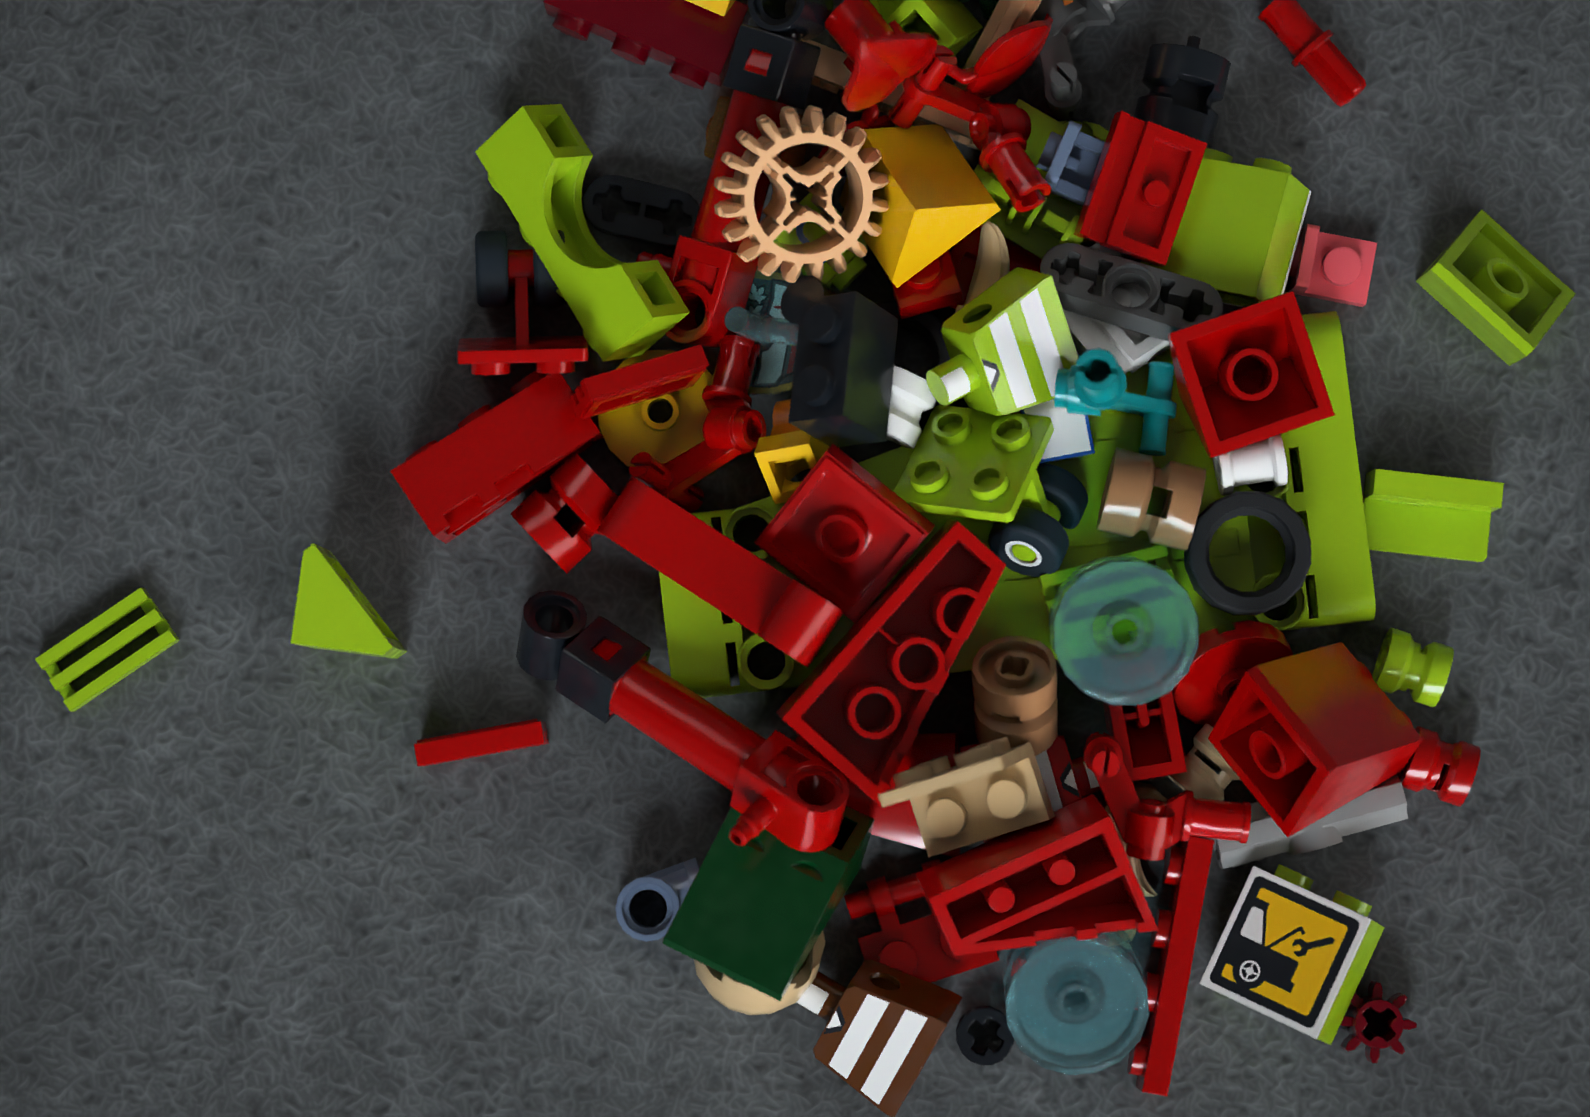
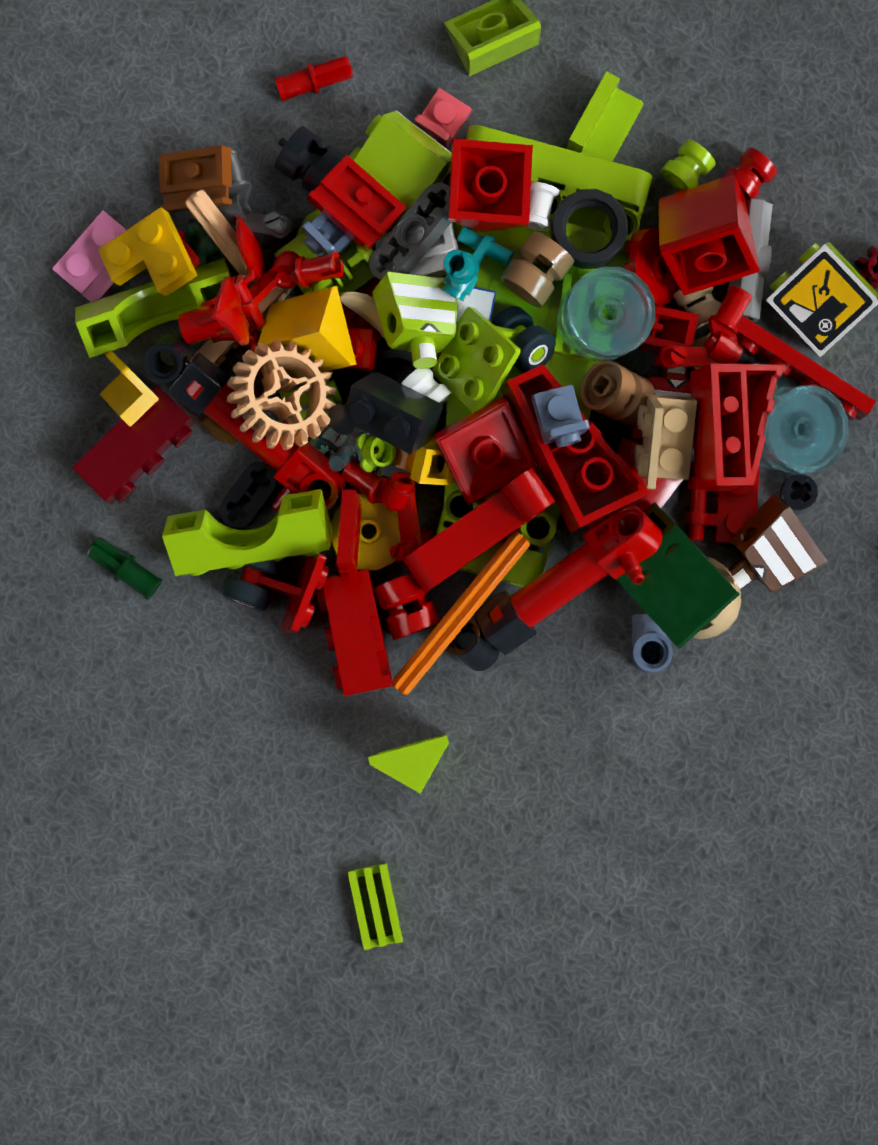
camera: 70 degrees left, 0 degrees up
(459, 72) = (124, 567): none -> dark green axle
(481, 742) = (517, 710): red tile -> none
(589, 596) = (460, 613): none -> orange axle
(773, 383) = (383, 454): none -> lime plate
(935, 619) = (559, 416): none -> sand blue bracket

